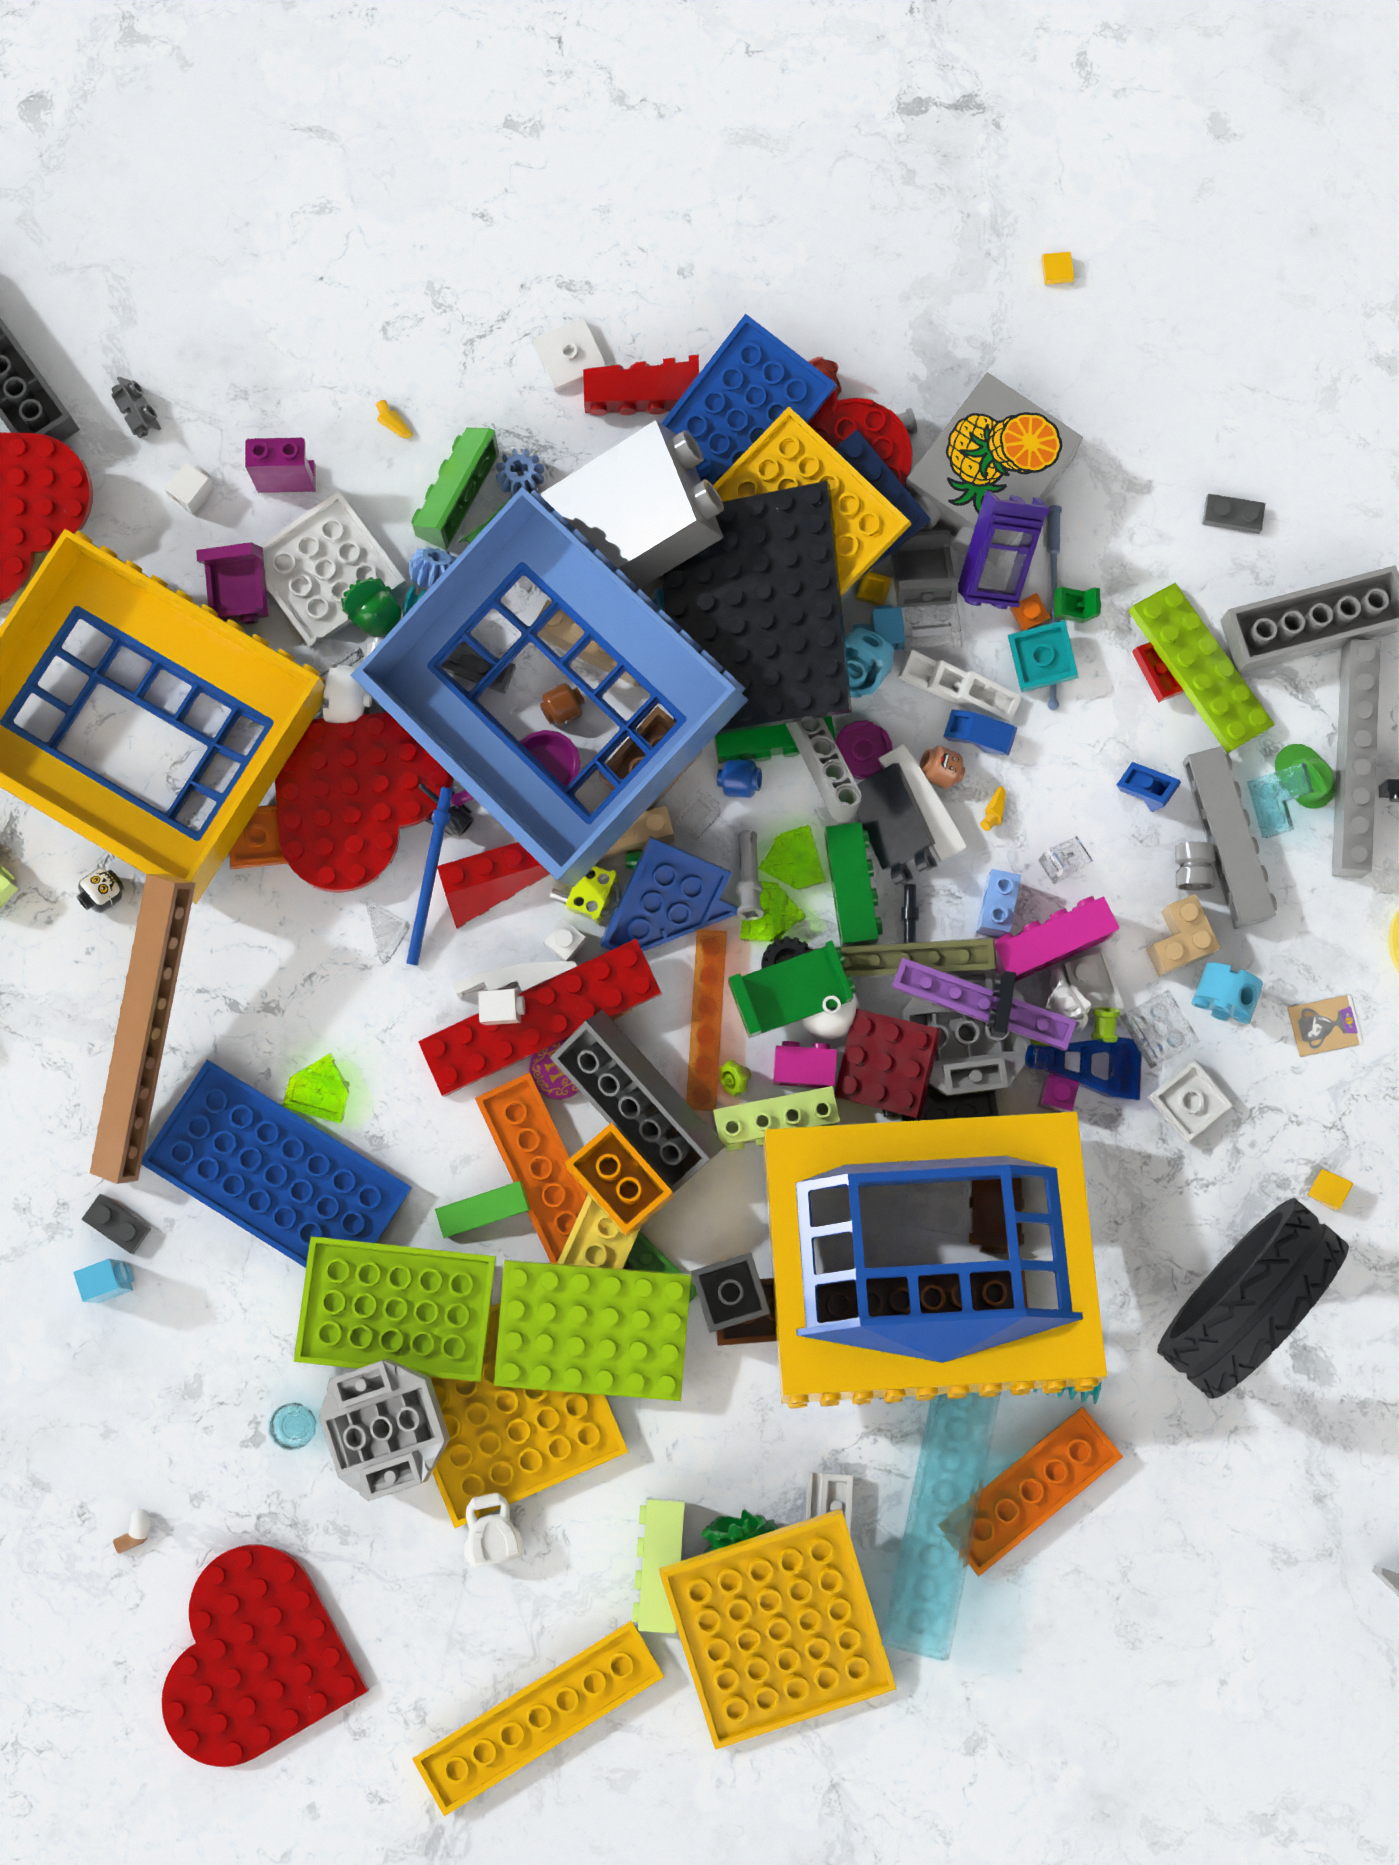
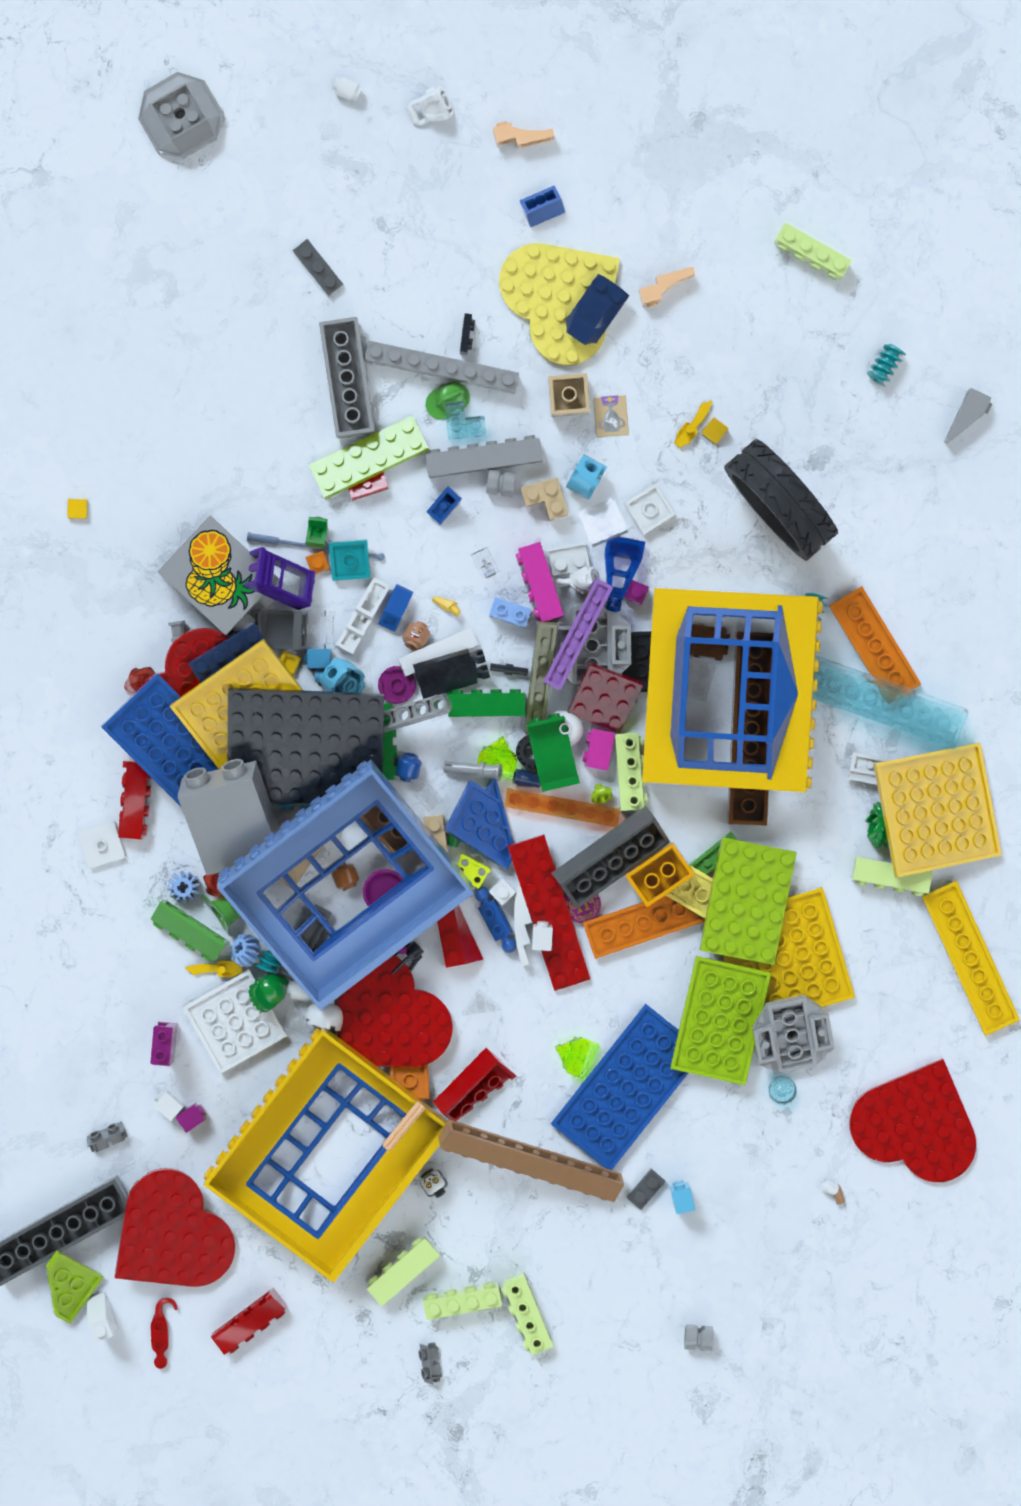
camera: 70 degrees left, 10 degrees up
(174, 522) = (191, 1117): none -> magenta brick
(179, 817) = (403, 1126): none -> light nougat axle
(235, 581) = (240, 1081): magenta panel -> none
(258, 933) = (473, 1085): none -> red wedge
(392, 420) = (135, 967): yellow bar -> none
(402, 545) = (223, 968): none -> yellow piece
(441, 819) = (415, 962): blue bar -> none
(482, 1209) = (664, 960): bright green tile -> none
(492, 1536) = (863, 975): white piece -> none
(519, 937) = (495, 920): none -> blue plate
(730, 1292) = (738, 815): dark grey brick -> none
(744, 956) = (524, 778): none -> dark blue cone
(795, 859) = (464, 738): clear neon green slope -> none
(1003, 991) = (589, 627): black plate -> none
(1105, 1024) = (595, 556): lime bush -> none
(1233, 513) = (264, 418): dark grey plate -> none
(1322, 1148) = (688, 430): none -> yellow piece
(1348, 952) = (568, 395): none -> tan brick

